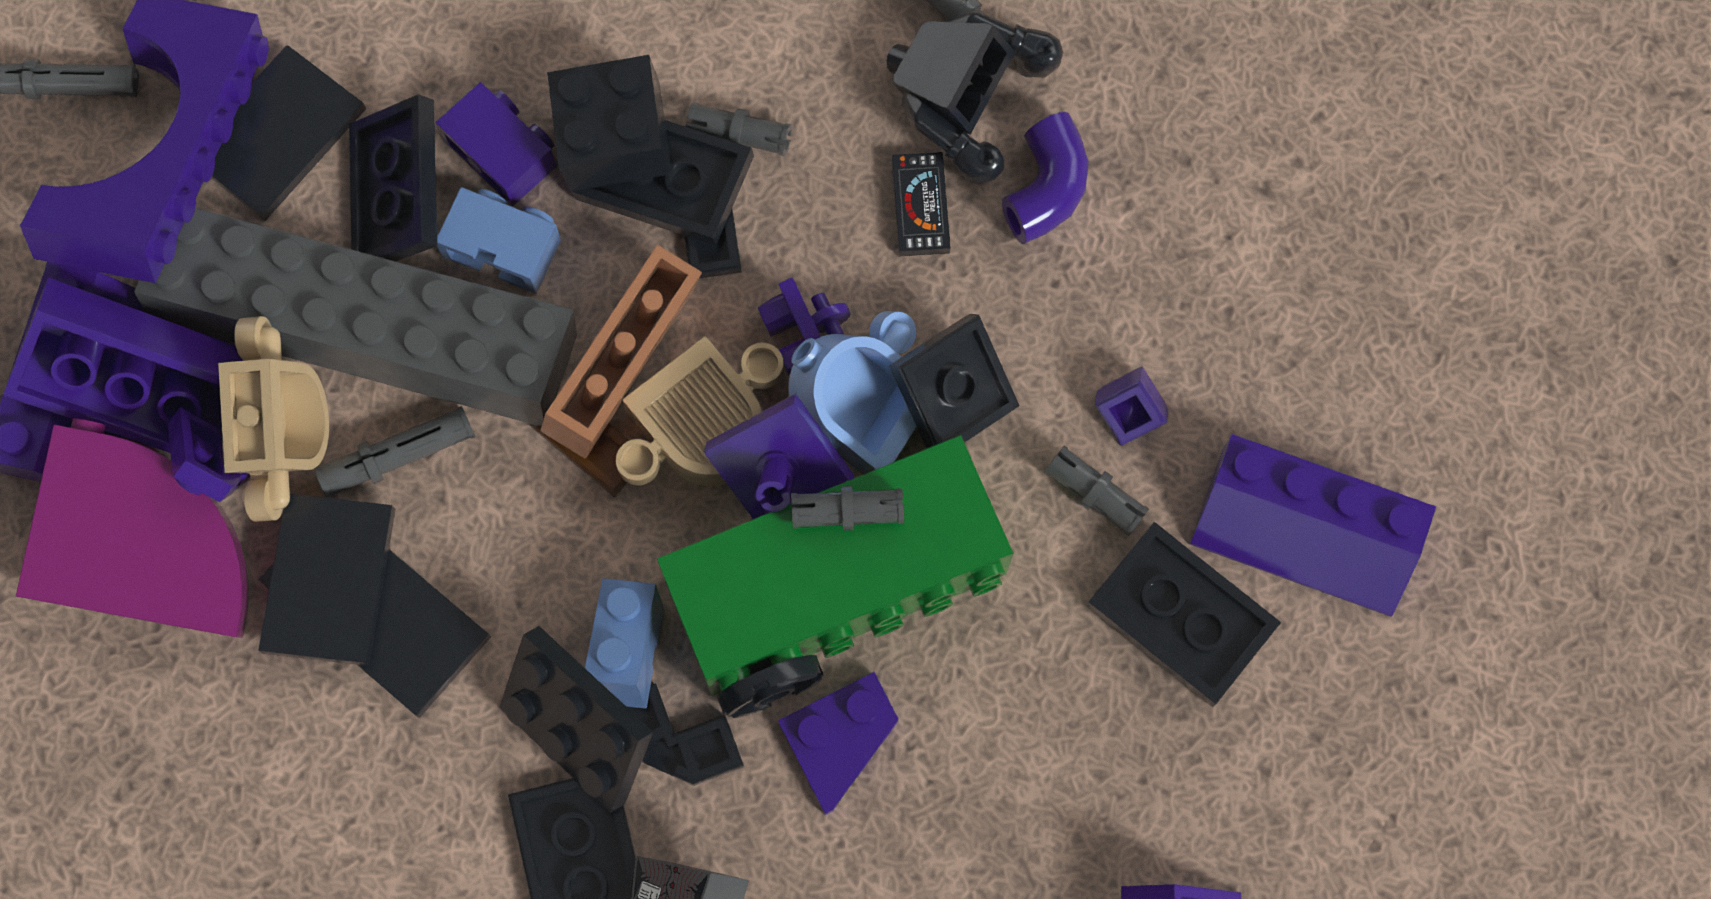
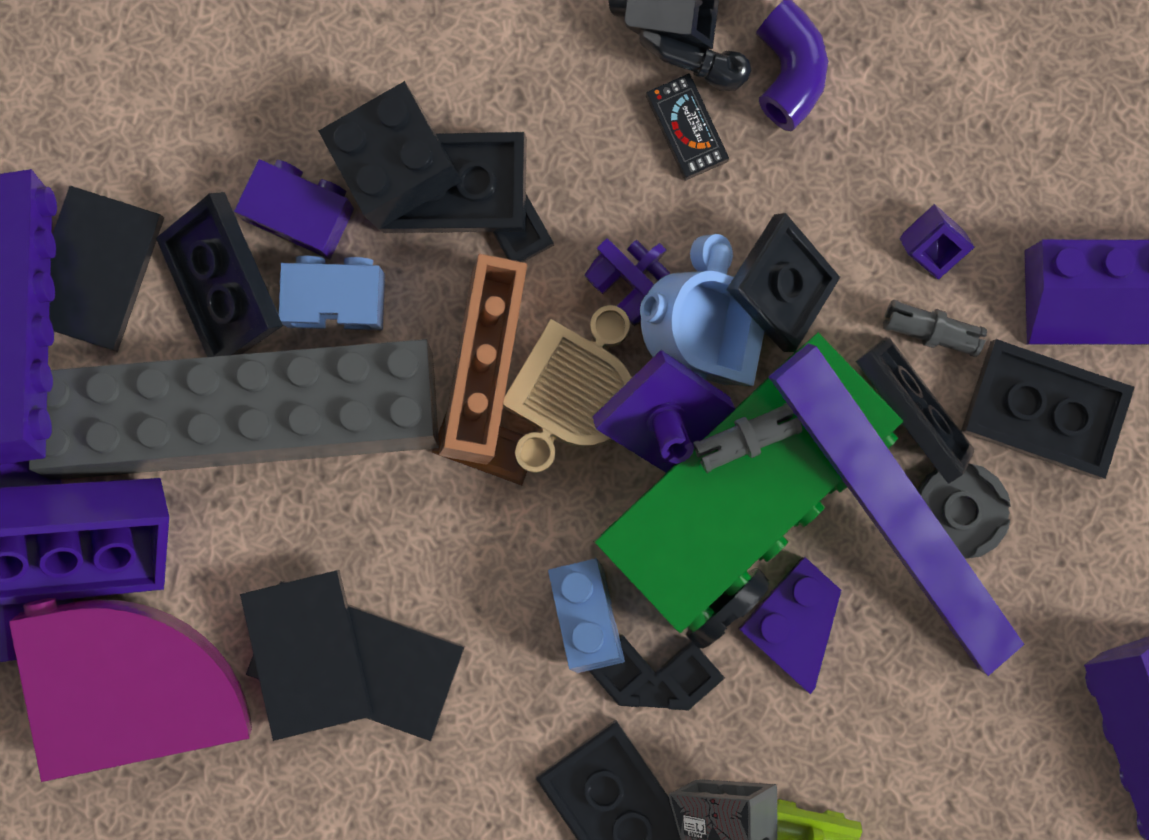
camera: 20 degrees left, 10 degrees up
(199, 457) = (159, 593): dark purple wing -> none
(270, 417) = (198, 538): tan piece -> none
(394, 452) = (317, 519): dark grey pin -> none
(575, 719) = (573, 701): black plate -> none
(741, 128) = (504, 116): dark grey pin -> none
(977, 647) = (895, 507): none -> dark purple tile
(1042, 556) = (918, 408): none -> black tile
(1049, 704) = (955, 511): none -> dark grey tile

